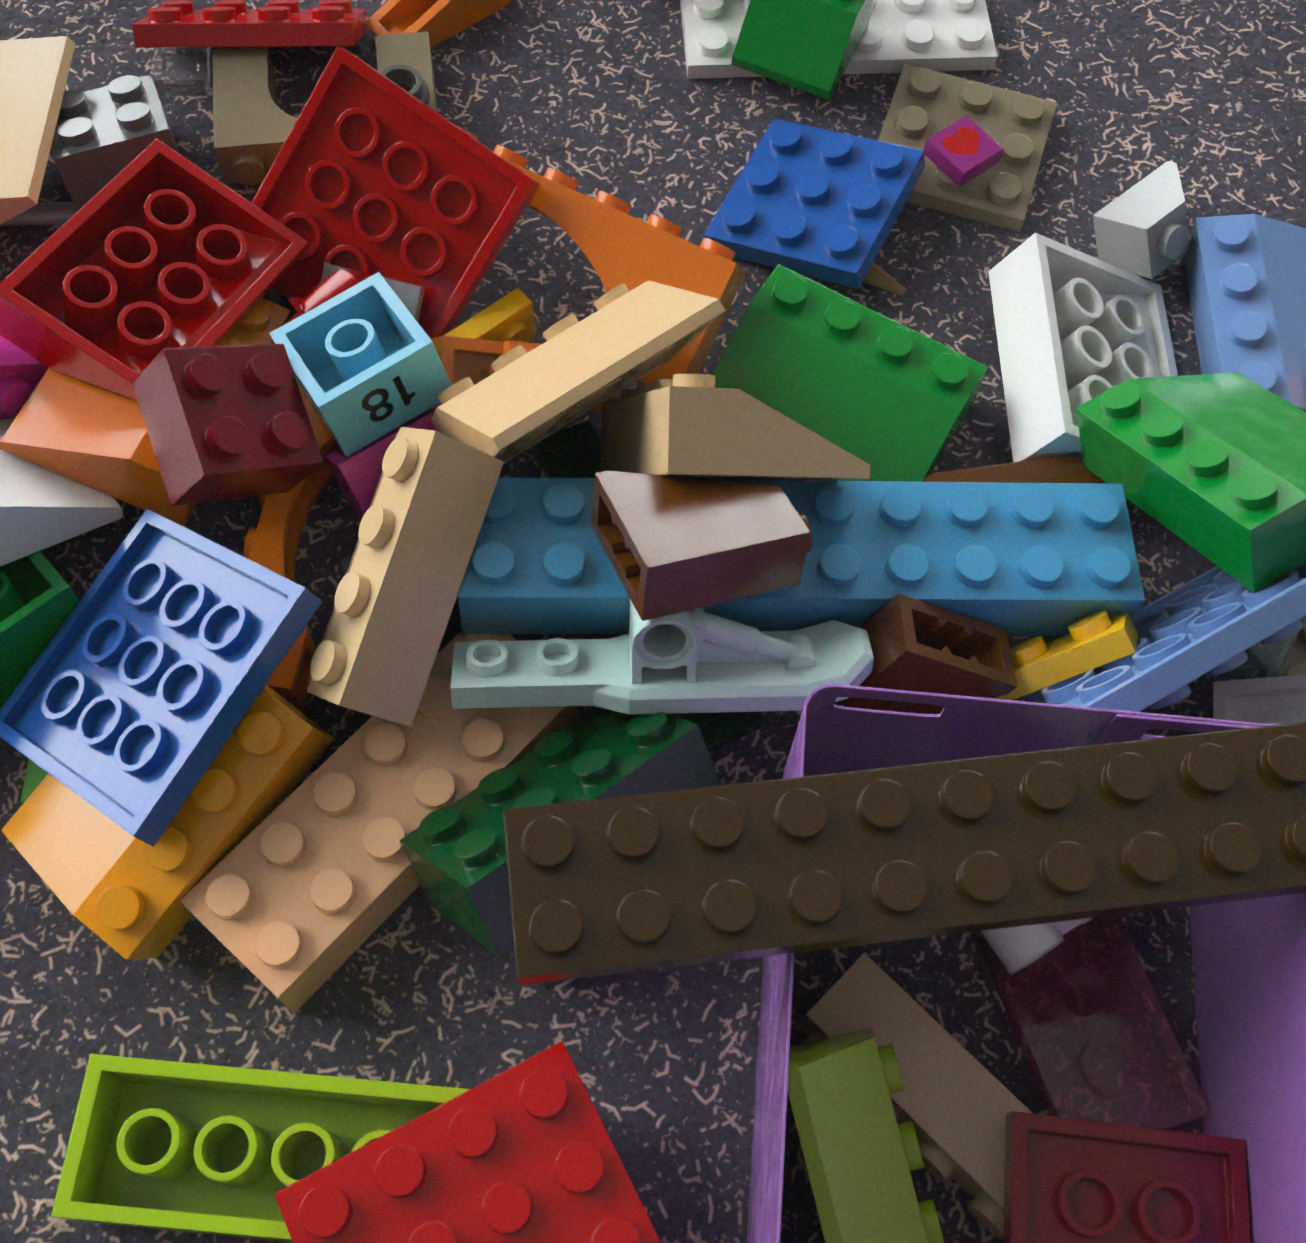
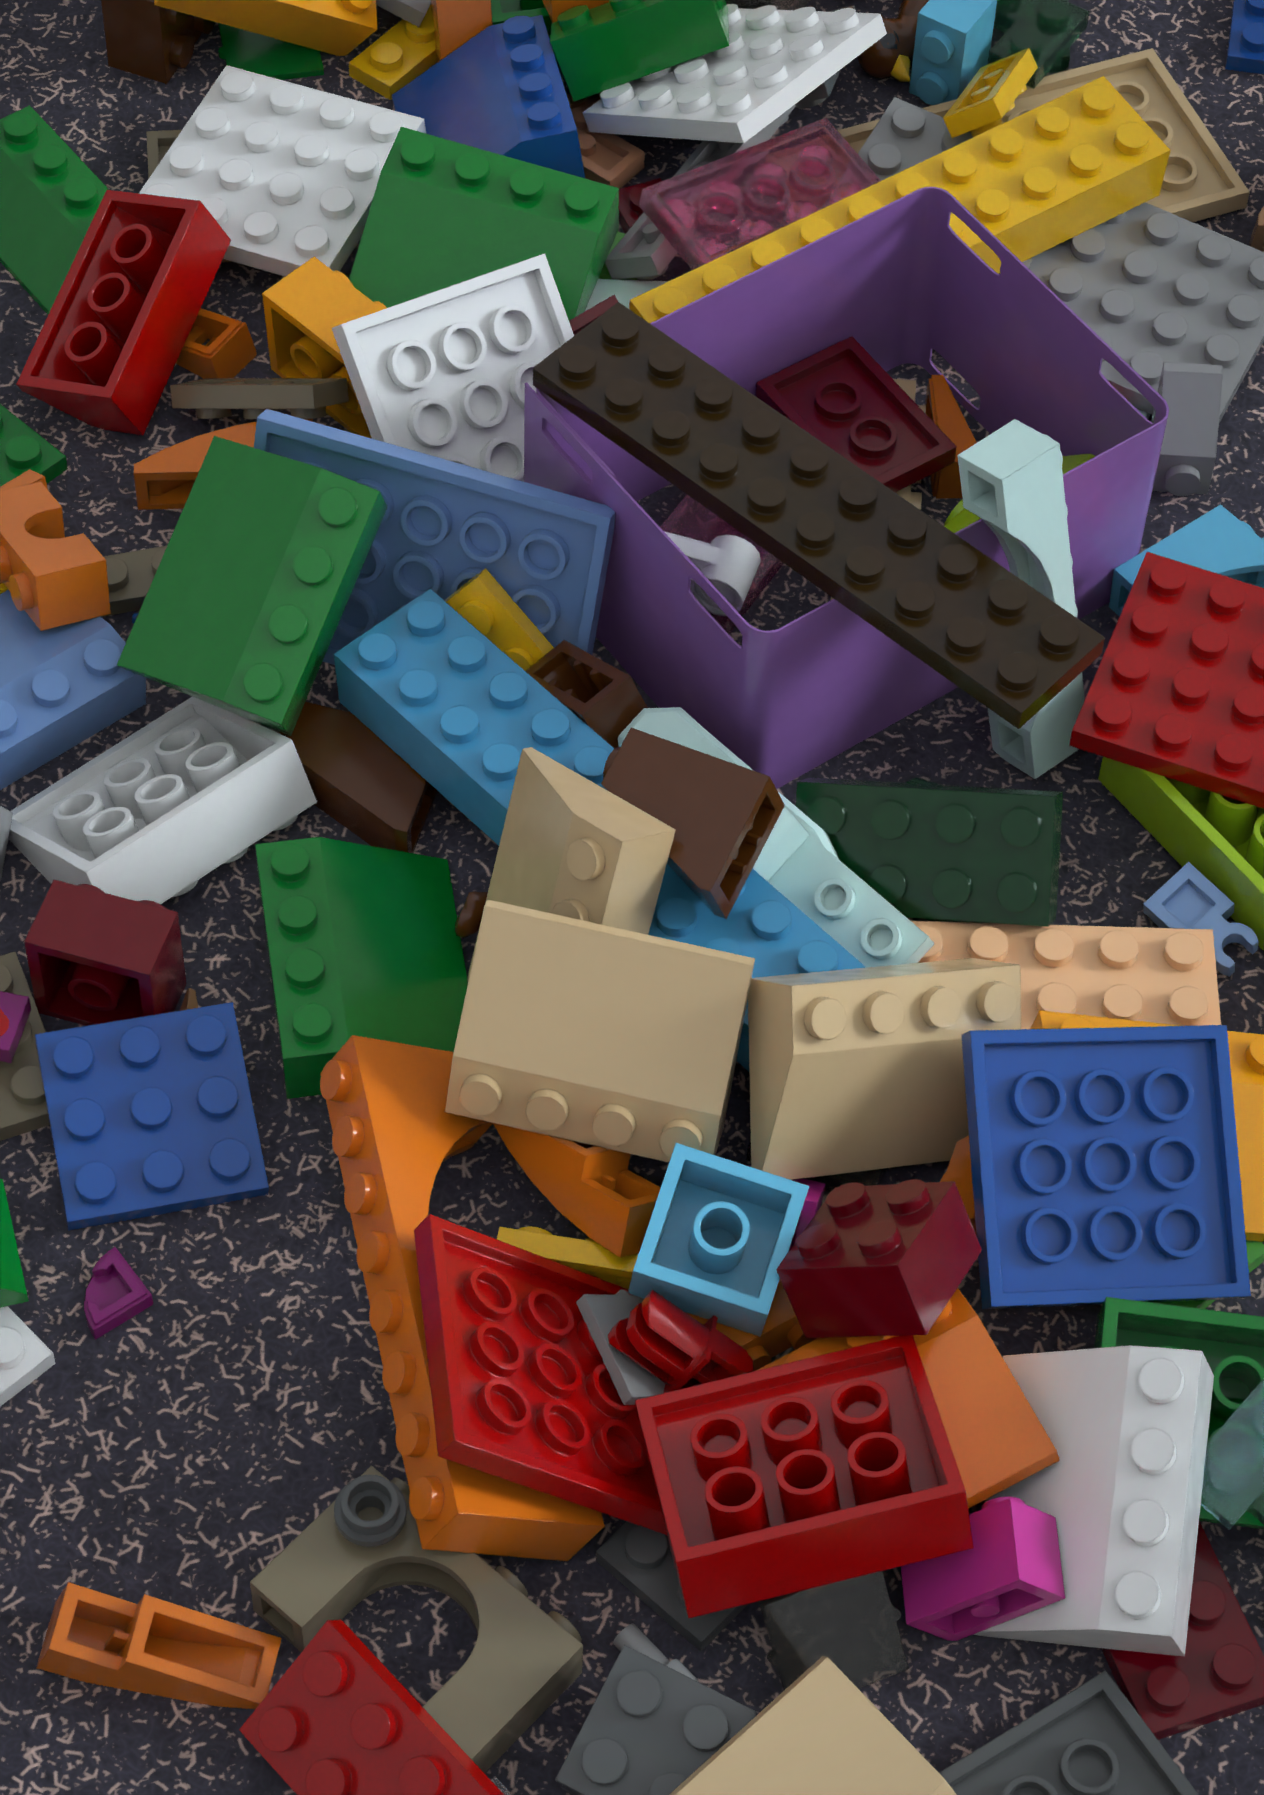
camera: 130 degrees left, 10 degrees down
(335, 1041) = (1196, 903): none -> light blue plate
(706, 125) = (113, 1294): none -> magenta tile
(754, 1049) = (1019, 493): none -> light aqua arch
(956, 226) = (103, 956): none -> dark red brick

